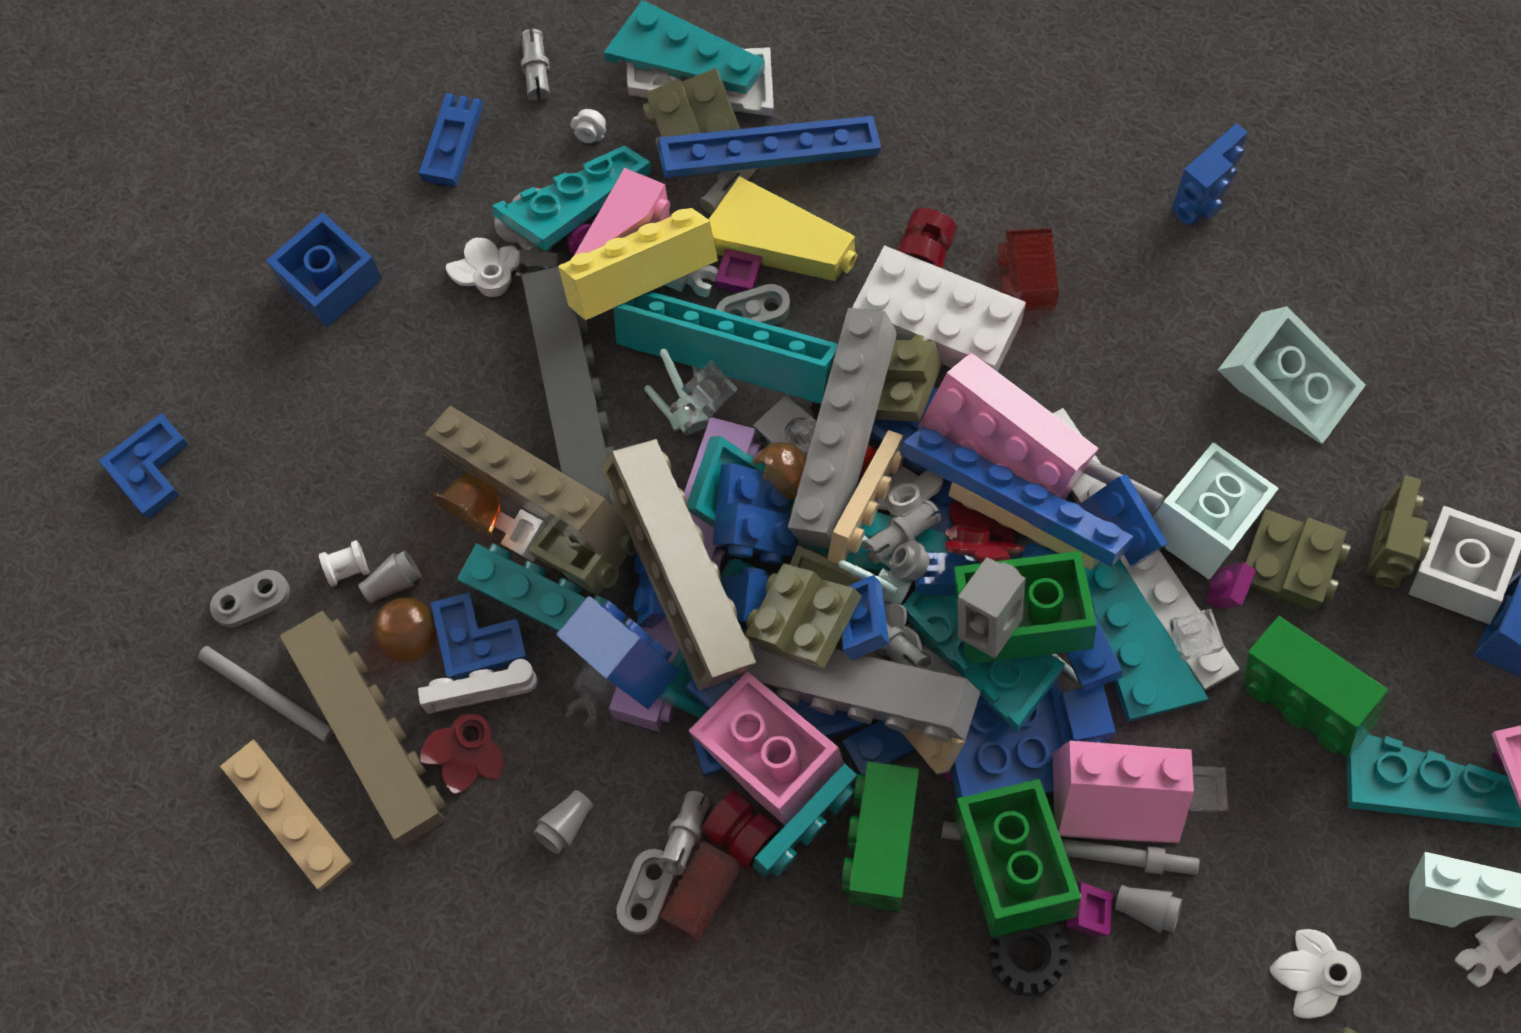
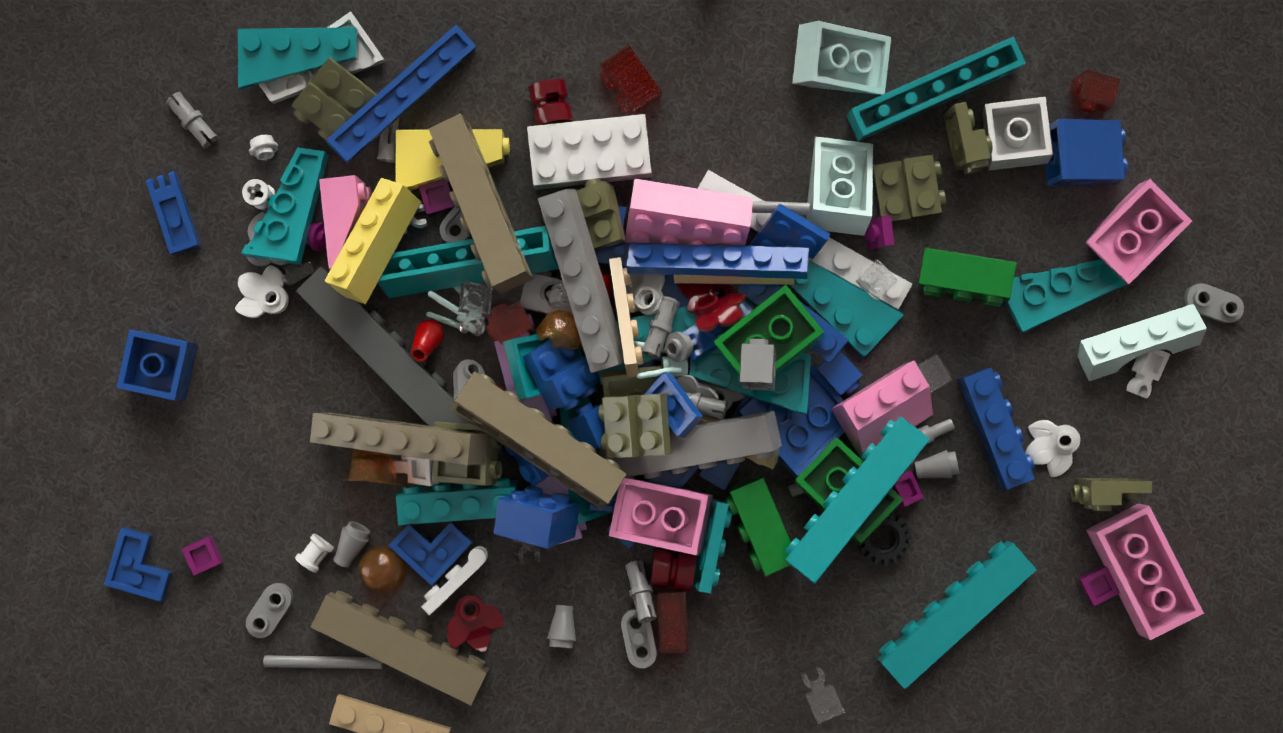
camera: 40 degrees left, 20 degrees up
(223, 494) = (202, 555): none -> magenta plate
(557, 161) = (257, 185): none -> white bush
(627, 405) = (426, 339): none -> red cone
(733, 422) = (508, 322): none -> clear red brick
(779, 283) = (480, 204): none -> dark tan brick
(1020, 857) = (856, 500): none -> teal brick
(1253, 902) = (996, 428): none -> blue brick
(1383, 459) = (935, 89): none -> teal brick

